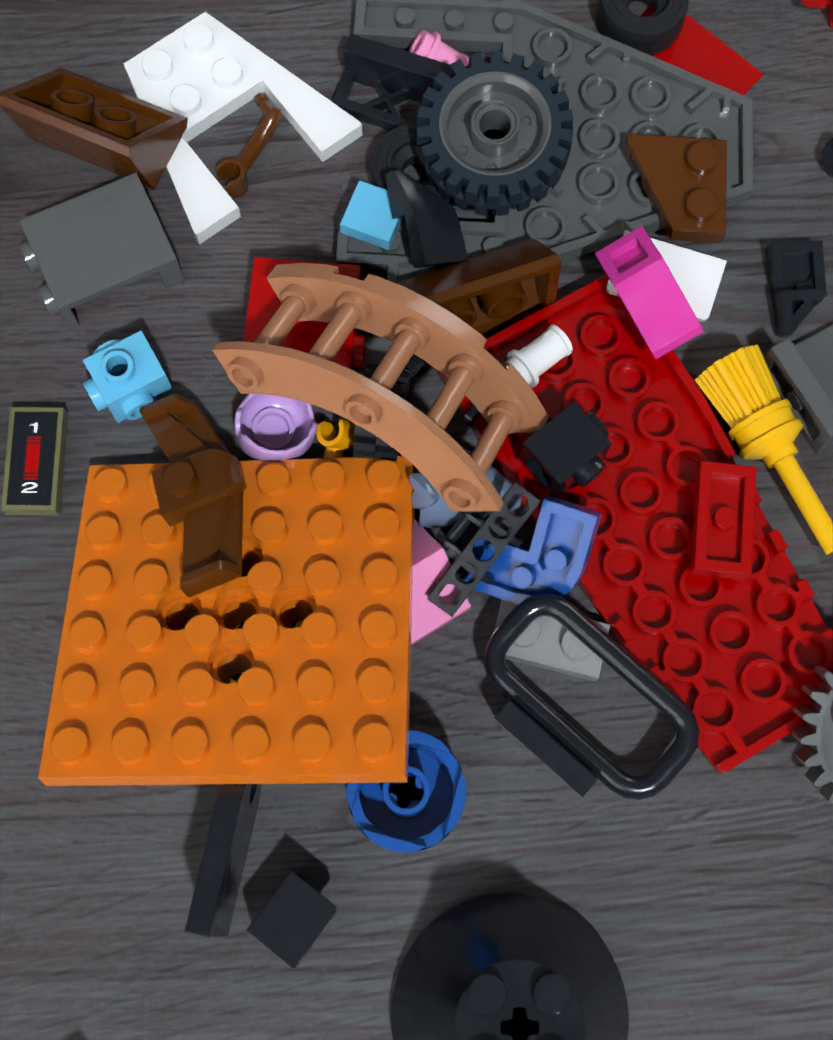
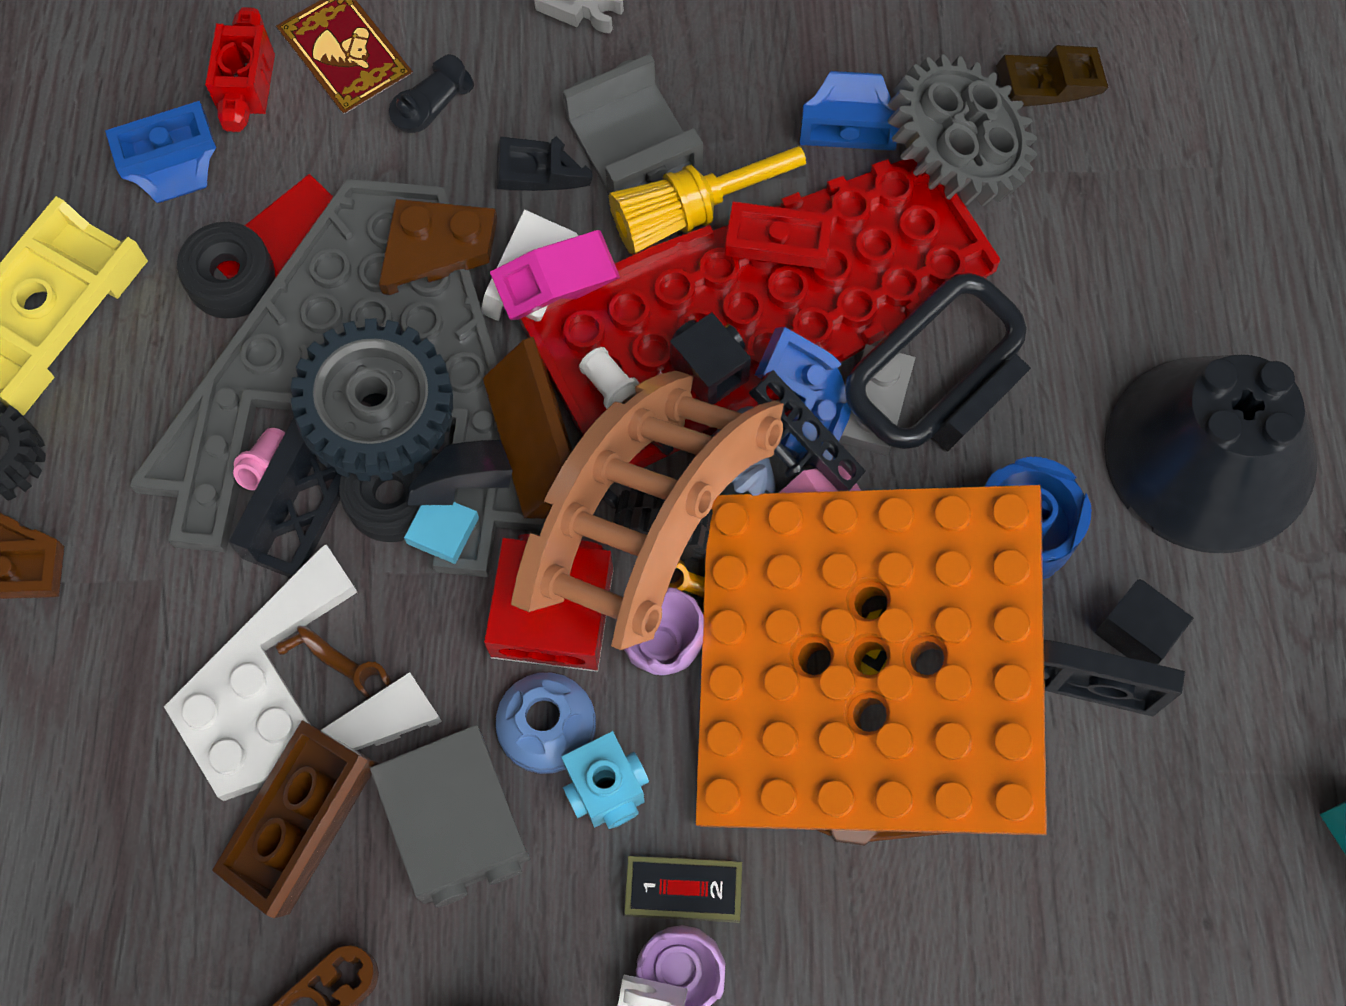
camera: 85 degrees left, 5 degrees down
(191, 353) = (537, 749): none -> medium blue piece
(202, 489) = (738, 694): reddish brown plate -> none

